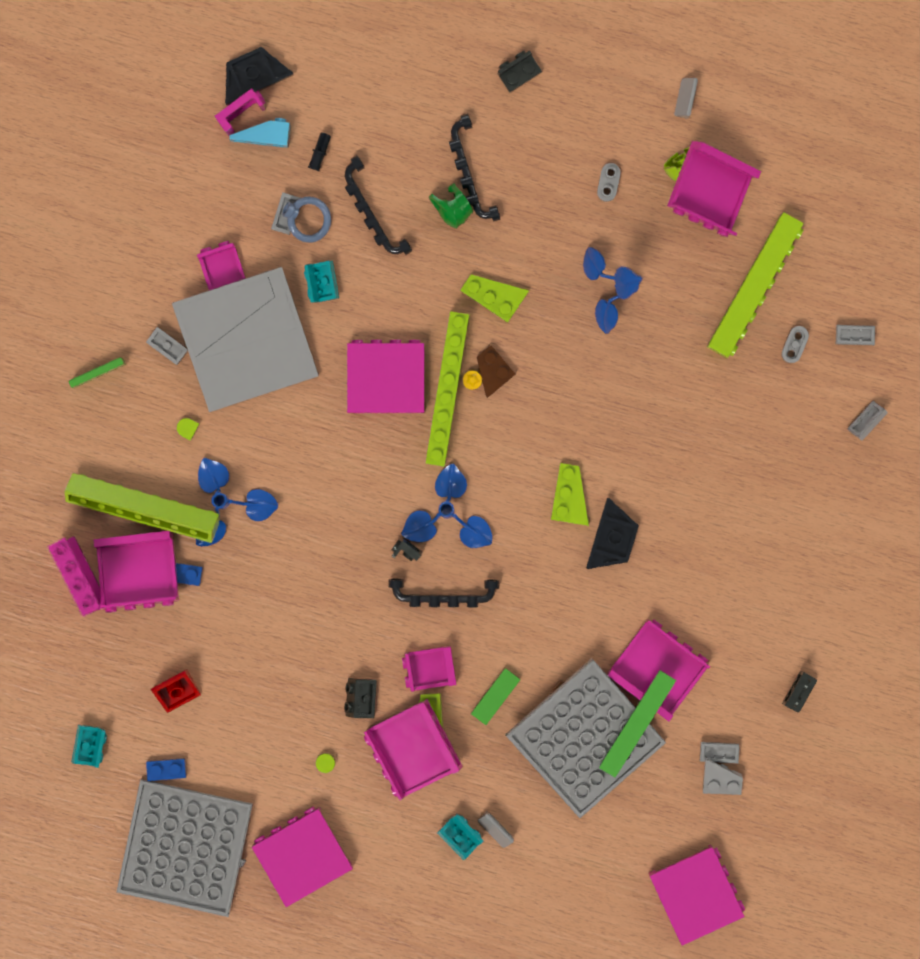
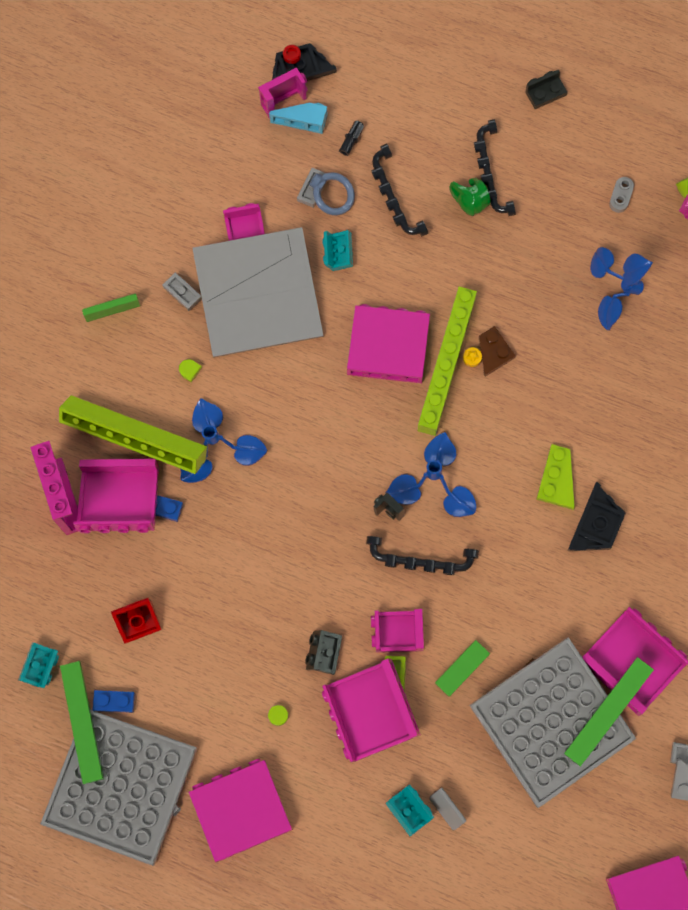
camera: 15 degrees right, 15 degrees down
(139, 794) = (81, 722): none -> bright green tile
(243, 63) = (291, 54): none -> red tile
(494, 296) = (502, 283): lime wing -> none

